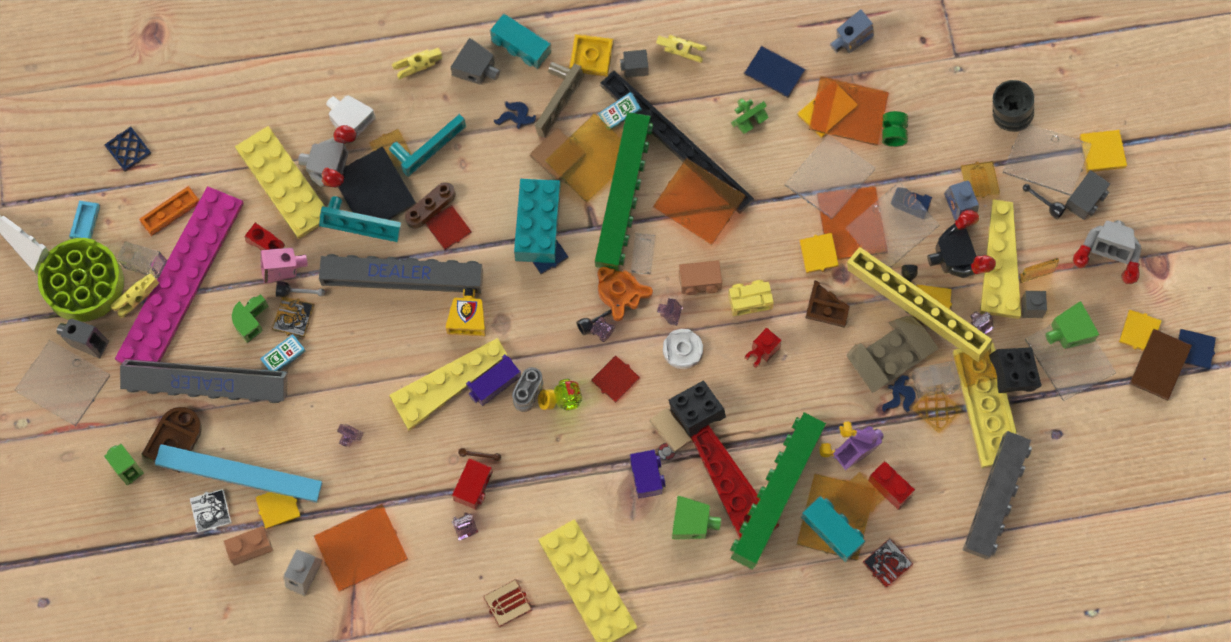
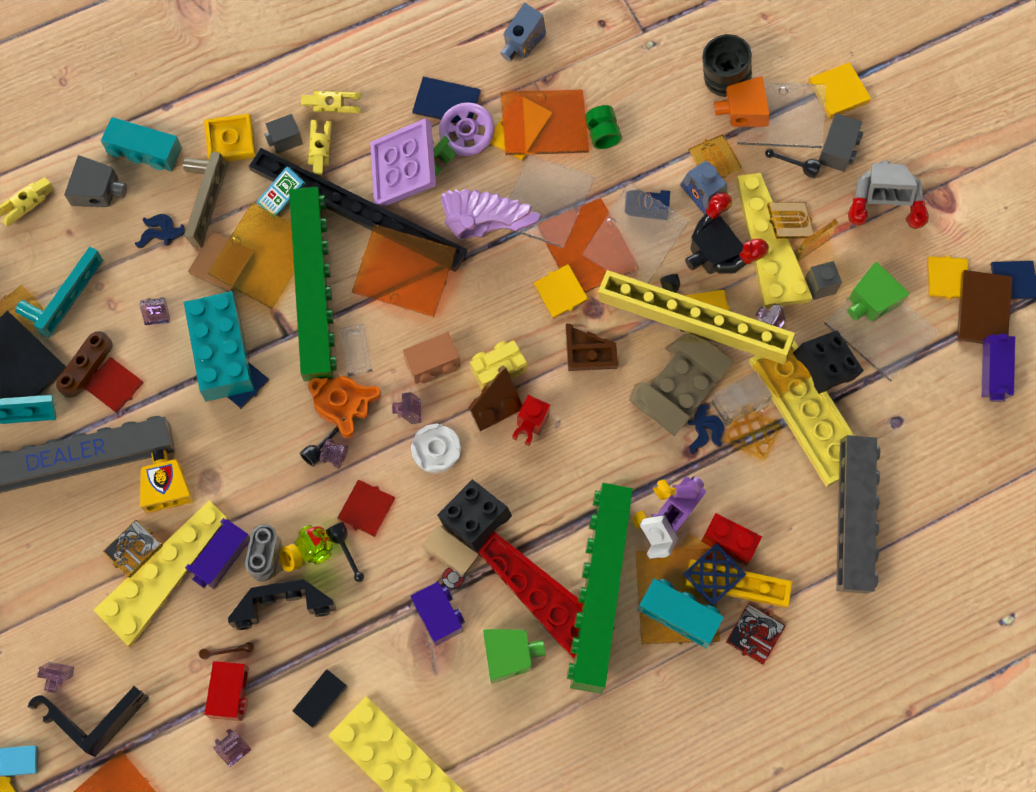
camera: 20 degrees left, 0 degrees up
(375, 485) = (104, 731): none -> black hinge
(430, 357) = (132, 548): none -> piece
(495, 179) = (154, 311): none -> tile
(501, 431) = (246, 611): none -> black slope
(539, 510) = (319, 698): none -> black tile
(588, 392) = (338, 534): none -> black hinge
(659, 90) = (319, 147): none -> light yellow hinge
(723, 114) = (403, 163): none -> lavender plate
(740, 326) = (496, 401): none -> reddish brown wing
(771, 173) = (478, 213): none -> lavender piece
(799, 95) = (483, 119): none -> lavender plate
(836, 466) = (659, 535): none -> white bracket
(883, 500) = (728, 561): none -> dark blue window
(886, 520) = (751, 587): none -> yellow plate
(1018, 141) = (745, 104): none -> orange torso
(1024, 247) = (790, 220): none -> piece
(1153, 414) = (998, 367): none -> dark purple brick

